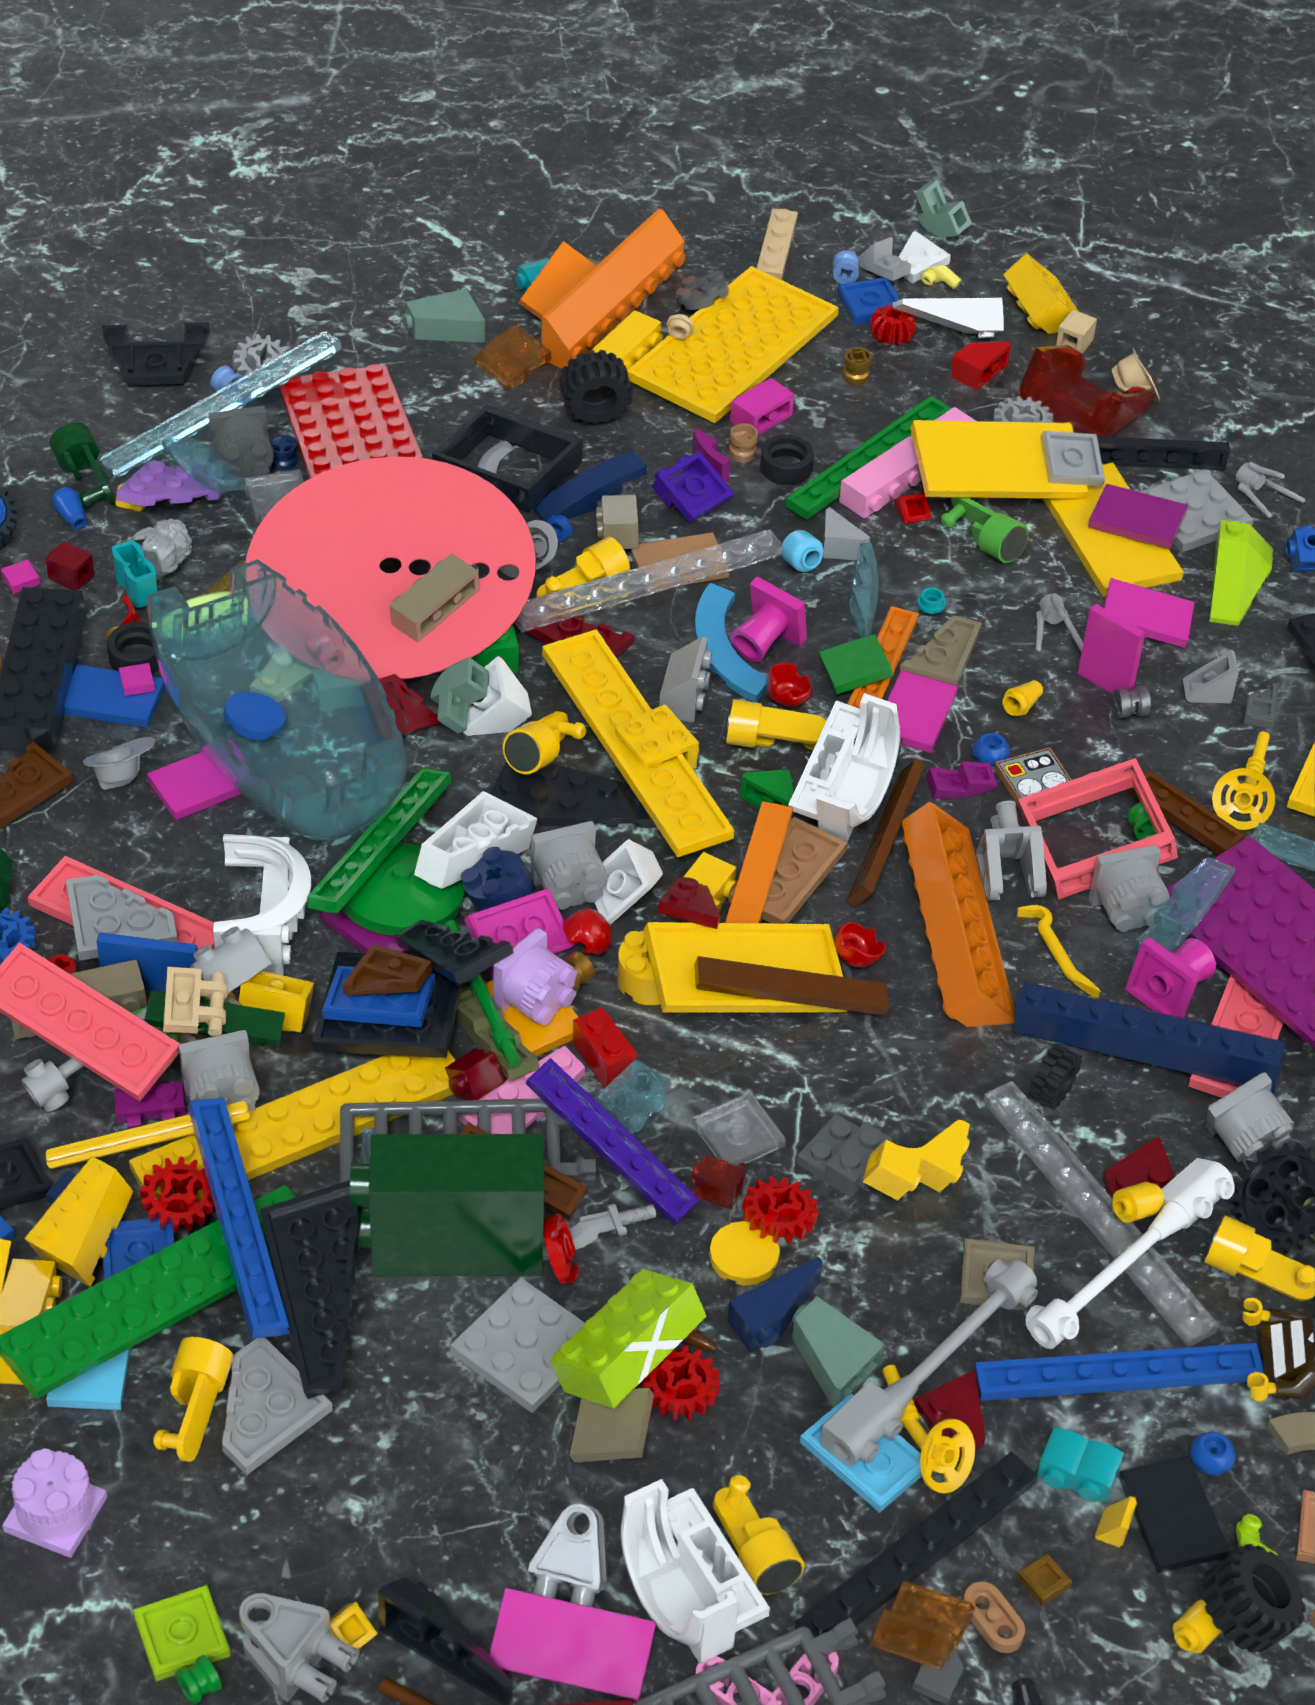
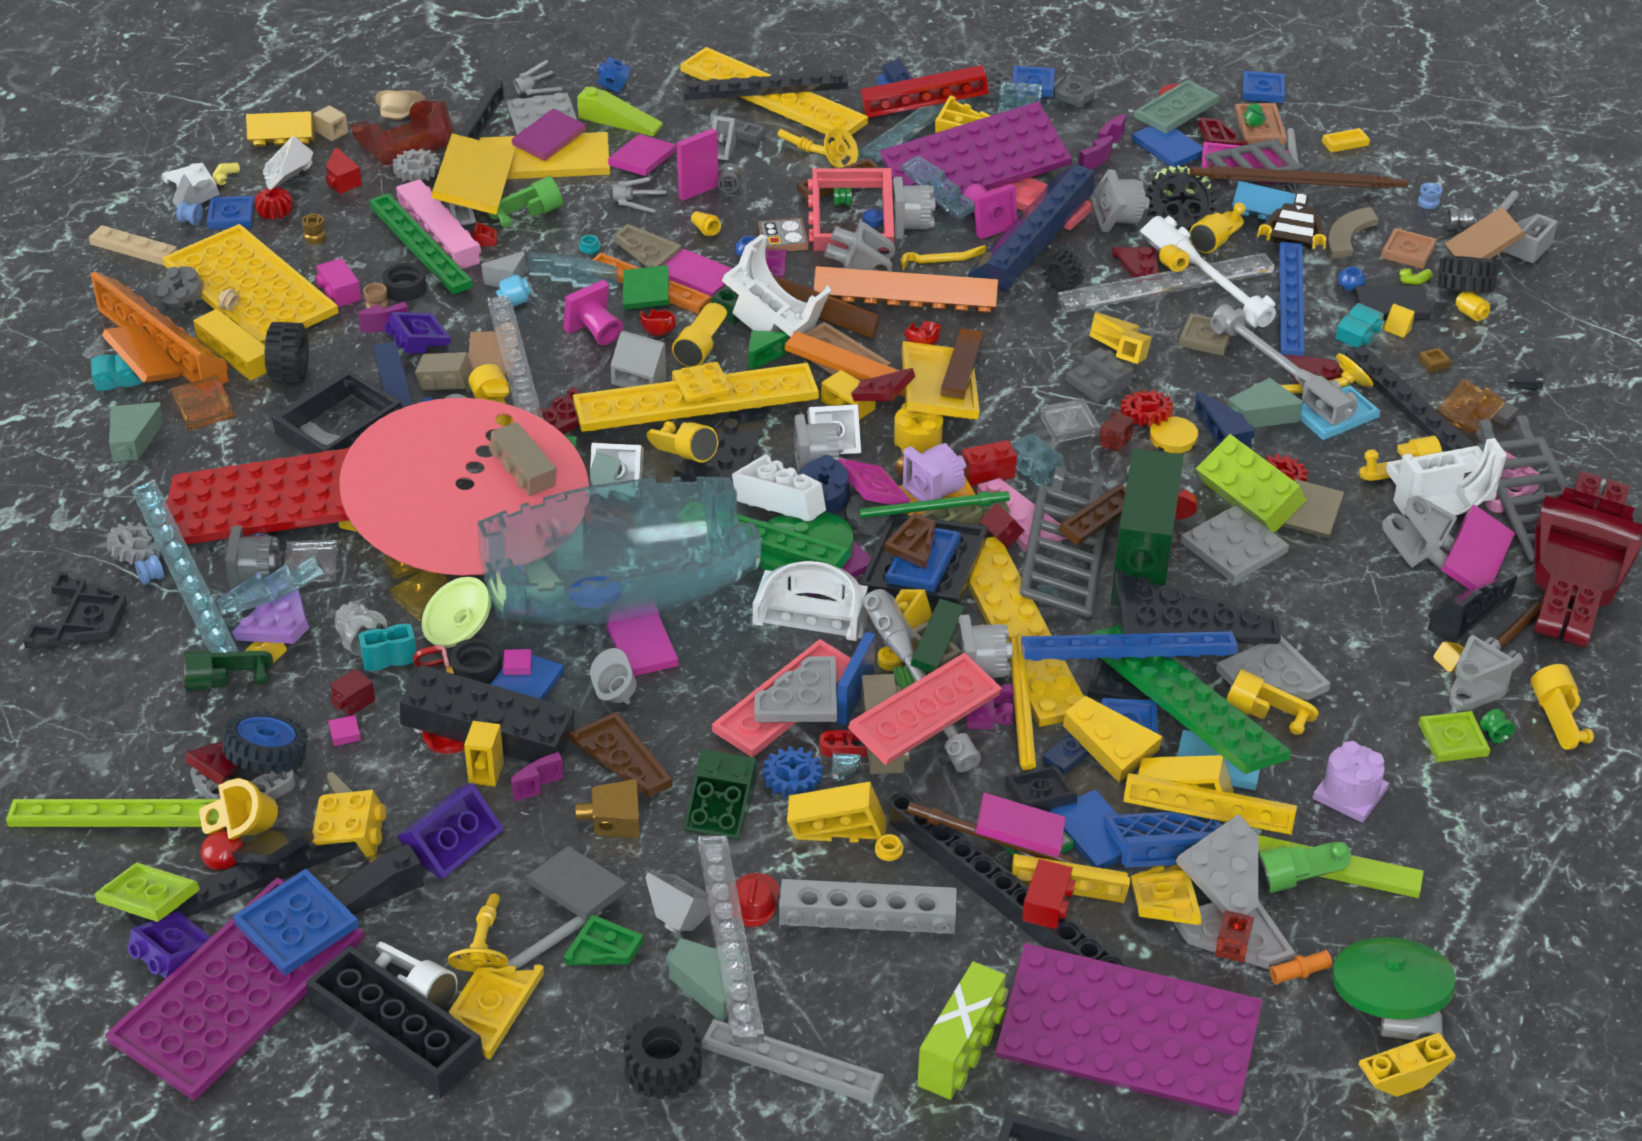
camera: 75 degrees left, 5 degrees down
(69, 506) = (270, 687): blue cone -> none
(177, 1208) = (1091, 682): red gear -> none
(183, 1001) = (932, 634): tan plate -> none
(452, 953) = (916, 494): black wing -> none
(590, 929) = (875, 451): red hair -> none
(612, 1141) = (1079, 465): dark purple tile -> none
(725, 661) = (574, 352): dark azure tile -> none
(939, 216) = (157, 154): sand green brick -> none
(996, 1619) = (1452, 379): medium nougat plate -> none
(1072, 458) = (486, 142): light grey tile -> none

